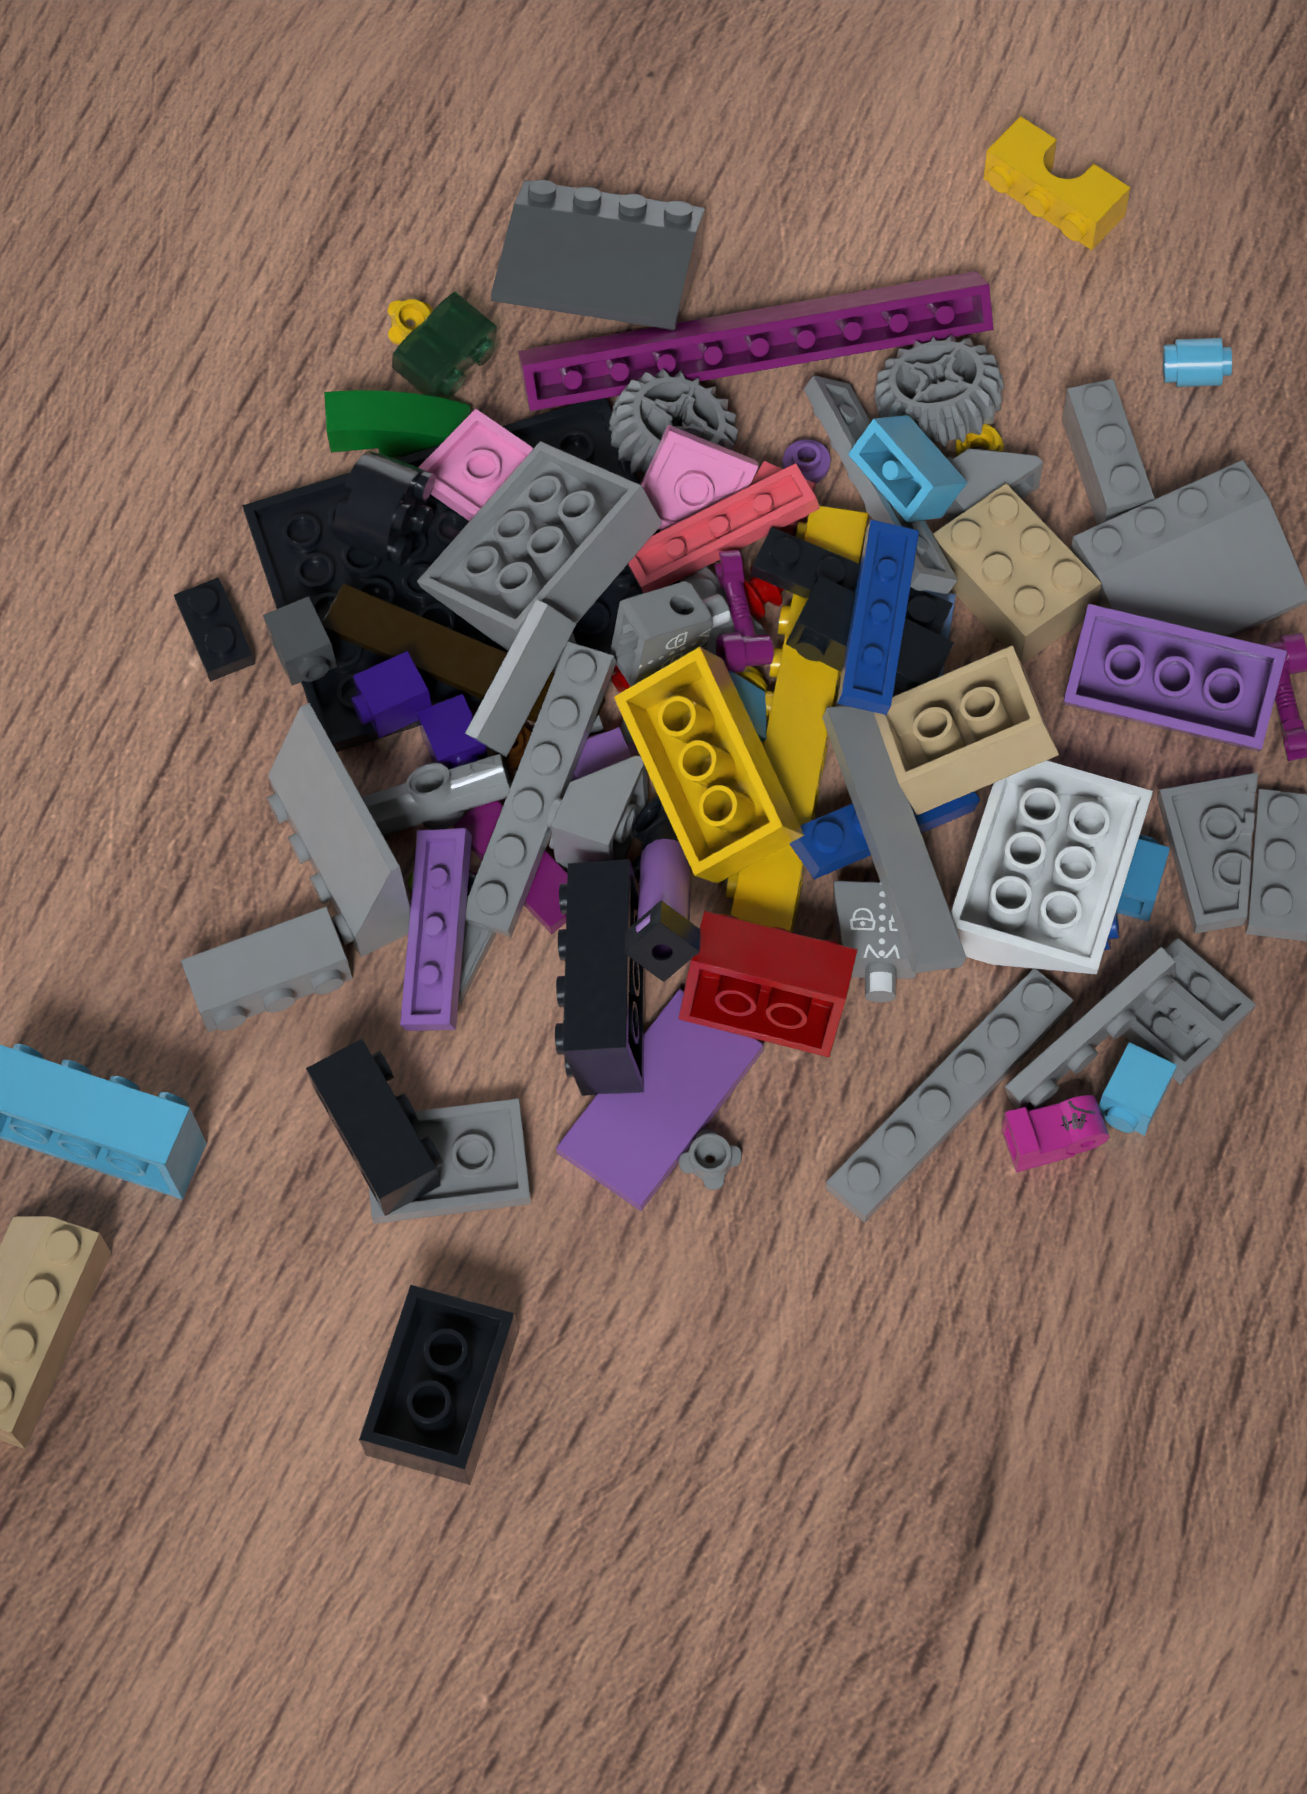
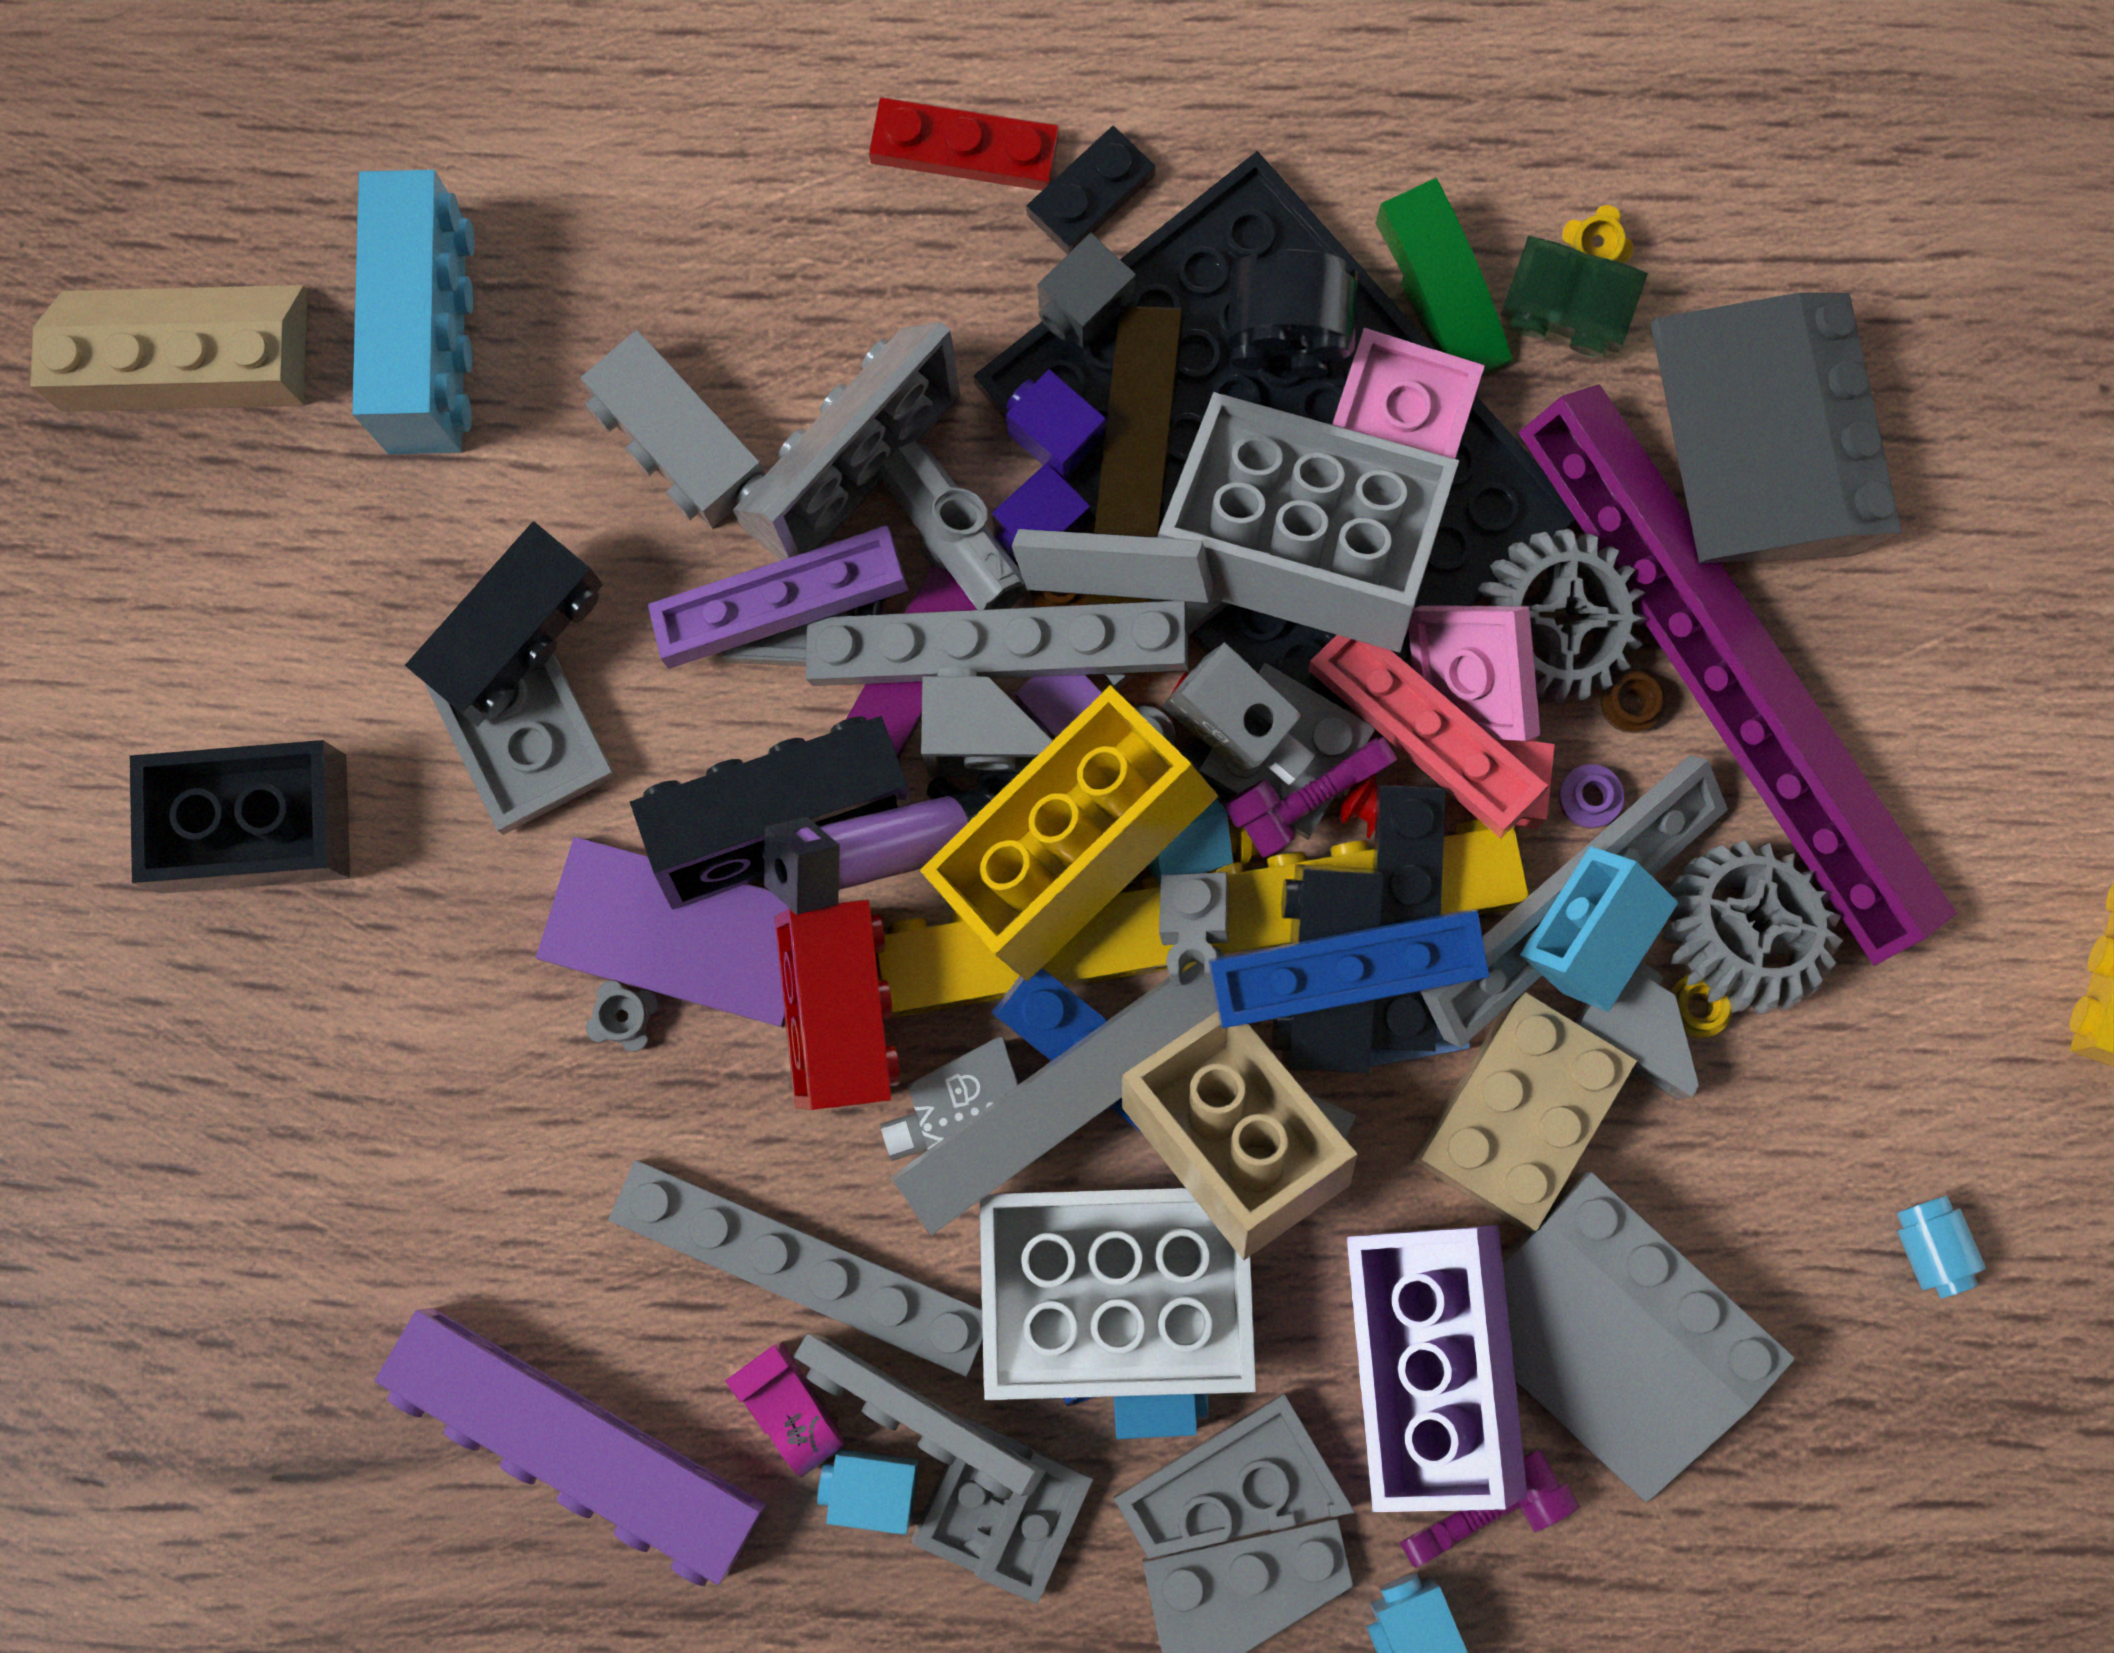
camera: 70 degrees right, 15 degrees up
(135, 702) = (963, 144): none -> red plate
(751, 403) = (1646, 689): none -> reddish brown plate
(799, 713) = (1192, 918): none -> light grey plate
(1028, 1295) = (570, 1445): none -> medium lavender brick
(1105, 450) = (1743, 1175): light grey brick -> none

